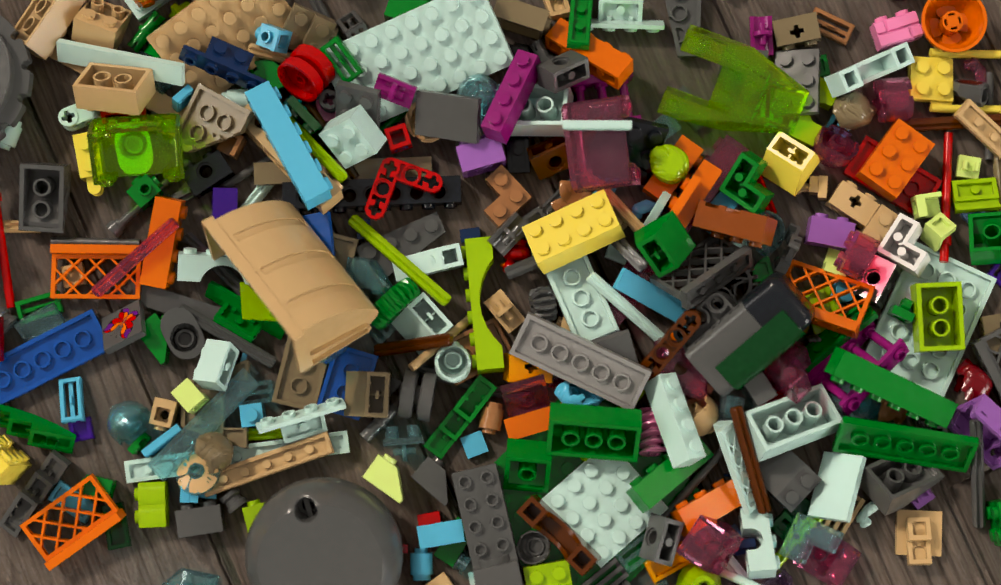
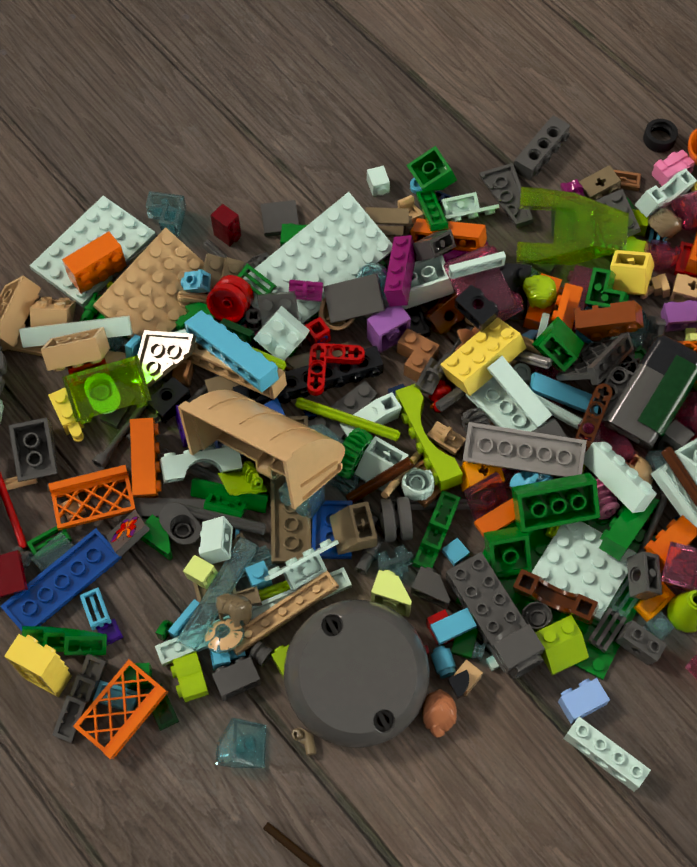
camera: 15 degrees left, 20 degrees down
(80, 117) = (50, 382): light aqua piece -> none
(127, 421) = (150, 610): clear light blue cylinder -> none
(135, 257) = (124, 472): clear pink axle -> none
(145, 190) = (118, 422): green brick -> none
(159, 406) = (179, 590): tan brick -> none
(223, 61) = (159, 308): dark blue bracket -> none
(491, 418) = (463, 525): medium nougat brick -> none
(570, 167) = (478, 317): none -> black brick
(598, 290) = (519, 391): none -> light aqua tile

